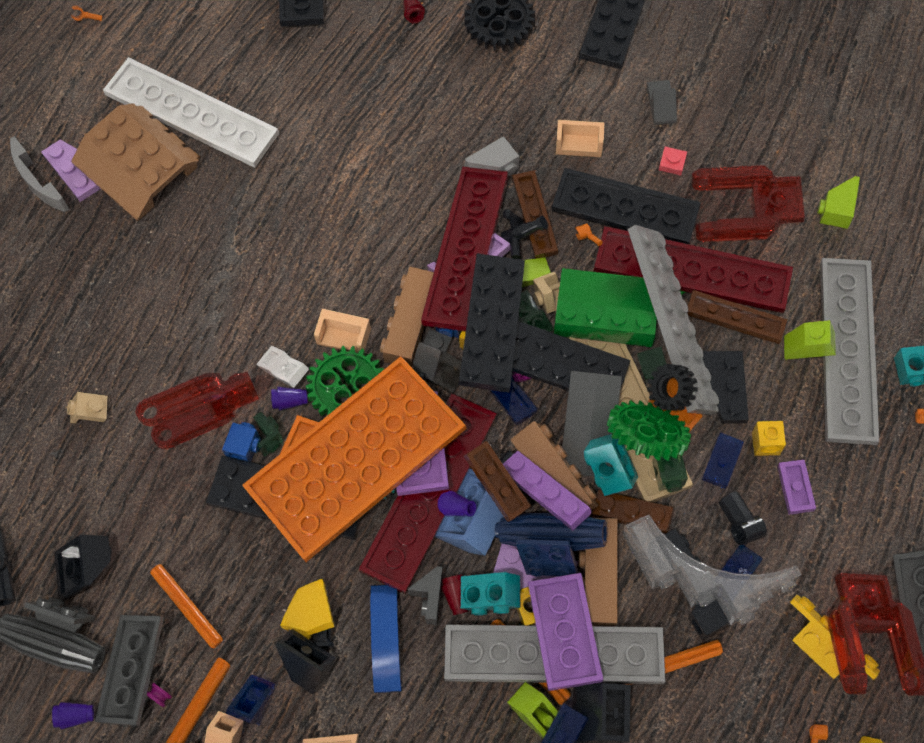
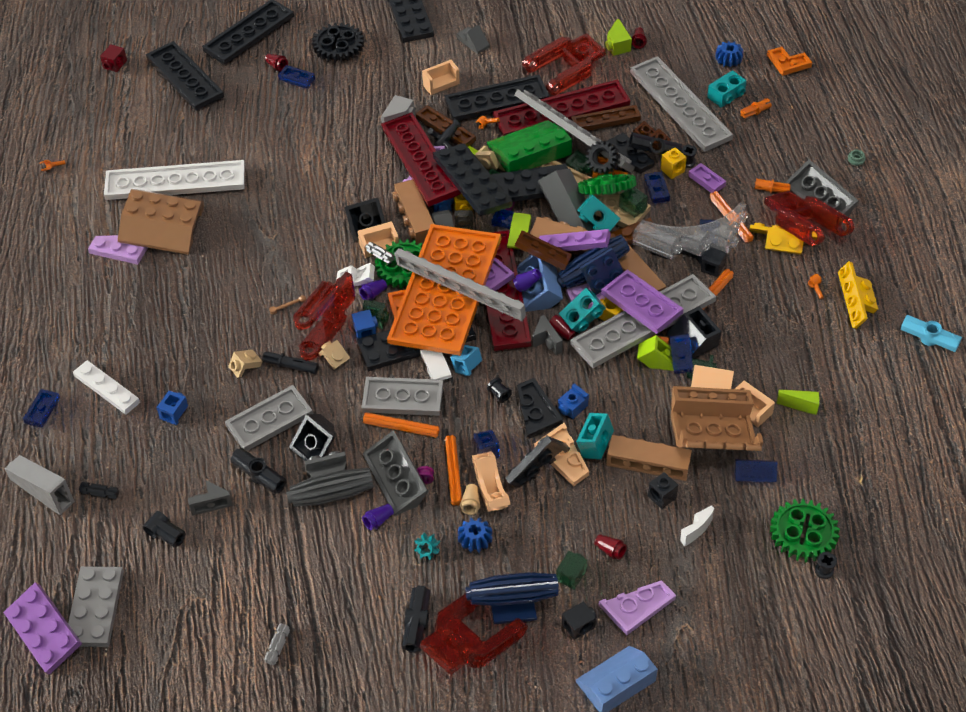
camera: 35 degrees left, 15 degrees down
(46, 193) = (115, 268): light grey slope -> none
(58, 501) = (268, 418): none -> light grey plate
(127, 434) = (290, 362): none -> black axle
(168, 354) = (273, 310): none -> medium nougat hinge
(183, 460) = (334, 354): none -> tan bracket
(214, 569) = (402, 396): none -> light grey plate
(278, 555) = (436, 365): none -> white slope
(305, 661) = (503, 404): black slope -> none
(309, 610) = (482, 379): yellow slope -> none
(318, 567) = (467, 361): none -> dark azure brick
(323, 356) = (379, 252): none -> axle
(345, 690) = (537, 409): none -> black wing
(349, 290) = (364, 215): none -> black slope
(369, 478) = (460, 284): none -> light grey plate
(385, 639) = (540, 370): blue slope -> none
(398, 716) = (573, 402): none -> blue brick
(419, 41) = (296, 76): none -> clear blue plate
(503, 425) = (519, 222): none -> lime slope
(672, 160) = (504, 64): coral plate -> none
(744, 526) = (690, 207): black piece -> none
(750, 389) = (645, 143): none -> black piece
(774, 377) = (647, 130): none -> reddish brown slope
(785, 559) = (724, 208): none -> orange axle
(803, 435) = (690, 152): none -> black bush
(810, 340) = (657, 106): lime slope -> none
(868, 218) = (639, 39): none -> dark red cone
(873, 551) = (771, 186): none -> orange axle

